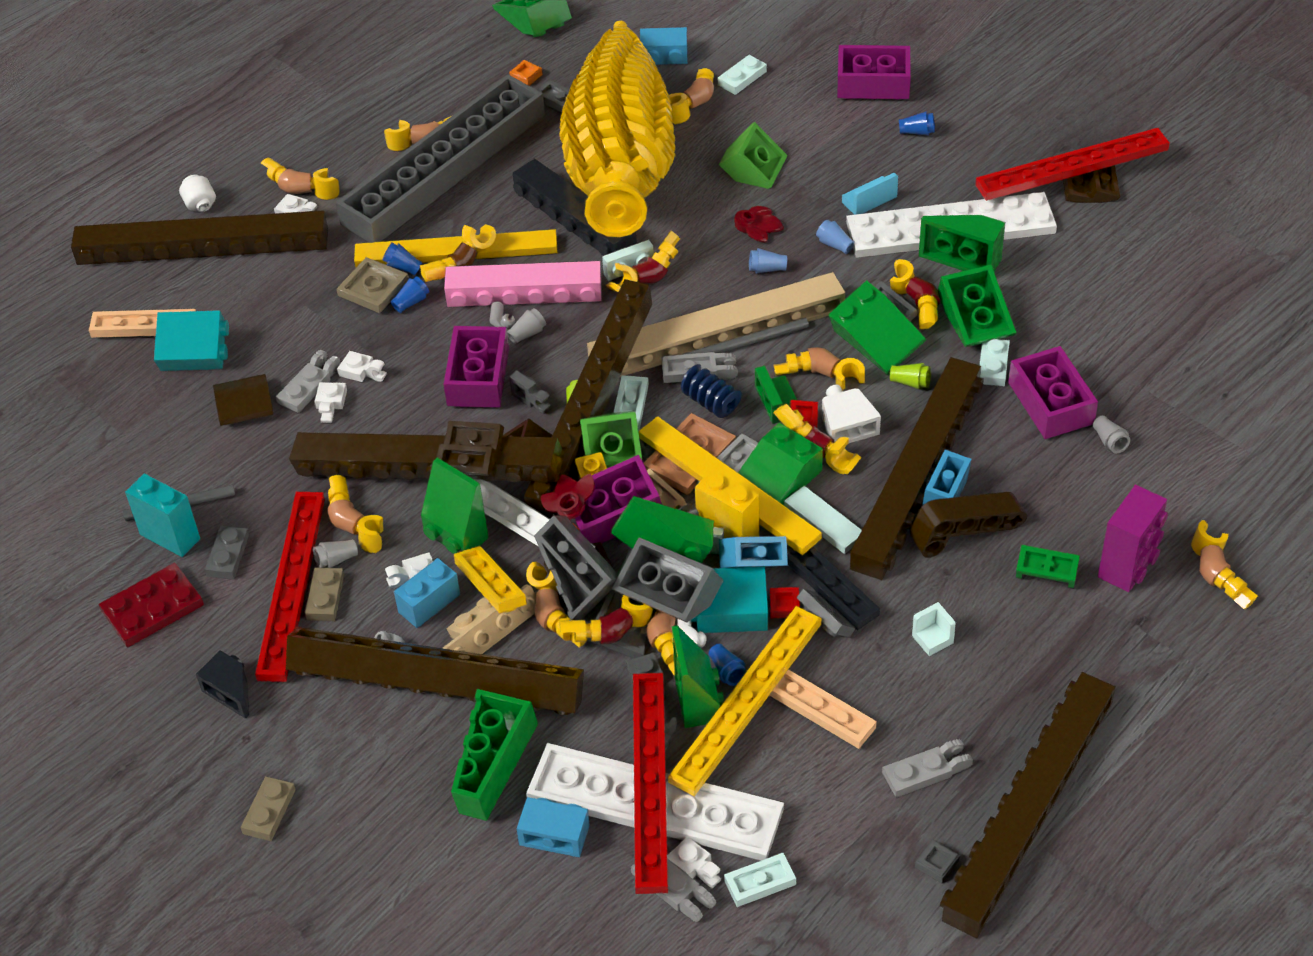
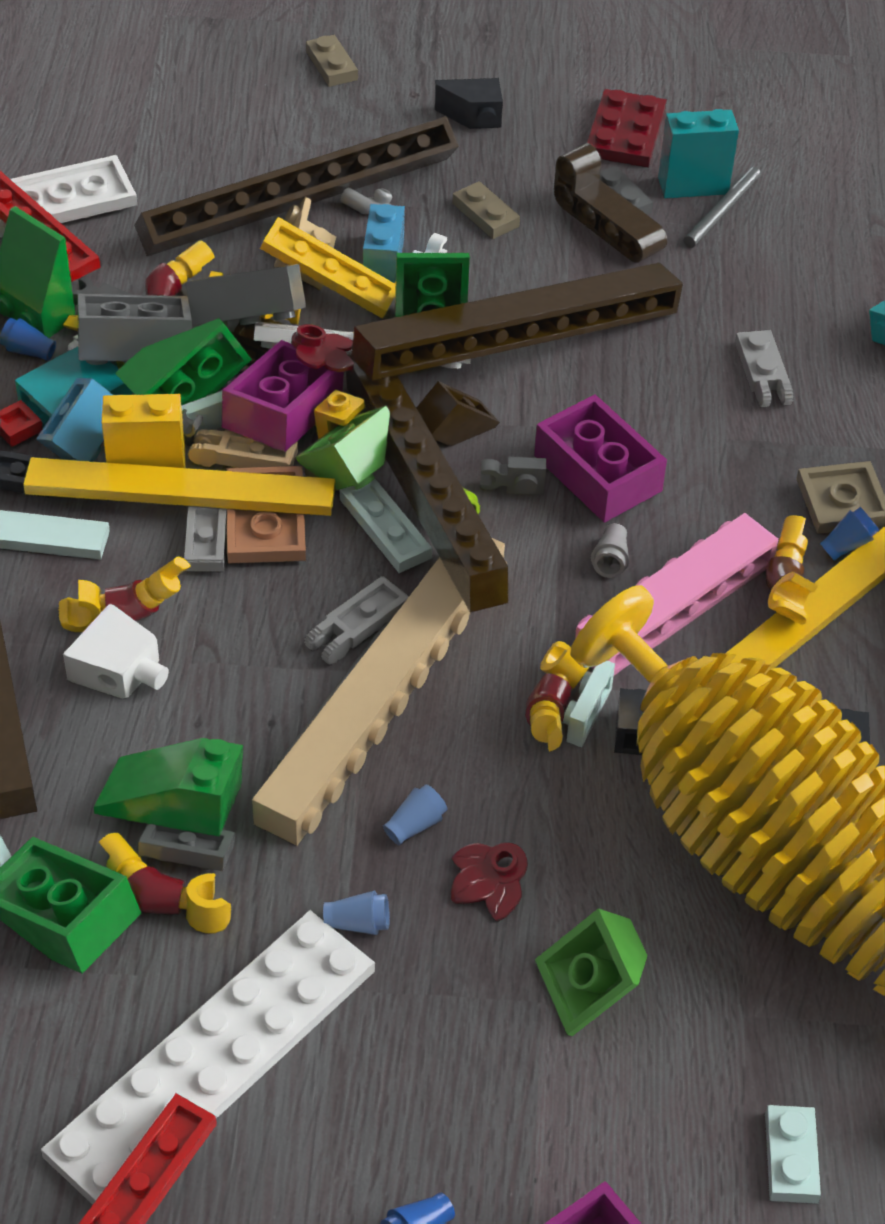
camera: 135 degrees right, 0 degrees up
(243, 399) = (799, 311): dark brown slope -> none
(257, 545) = (603, 209): none -> dark brown beam
(290, 585) = (532, 202): red plate -> none
(328, 398) = (717, 365): white plate -> none
(333, 553) = (518, 232): light grey cone -> none
(347, 518) = (538, 265): yellow piece -> none
(358, 366) = (733, 409): white plate -> none
(410, 294) = (786, 504): blue cone -> none
(471, 446) = (461, 306): dark brown slope -> none
(491, 751) = (176, 154): green wedge -> none
(498, 319) = (653, 546): light grey arm -> none
(553, 826) = (67, 144): dark azure brick -> none
(695, 95) = (806, 1053): piece -> none
(710, 391) = (304, 586): dark blue piece -> none
(773, 391) = (231, 639): green panel -> none
(782, 463) = (140, 543): green slope -> none
(807, 409) = (172, 627): red plate -> none
(823, 362) = (203, 709): yellow piece -> none
(871, 194) = (375, 1029): medium azure panel -> none
(911, 375) = (78, 761): lime cone -> none
(962, 240) = (148, 986): green slope -> none

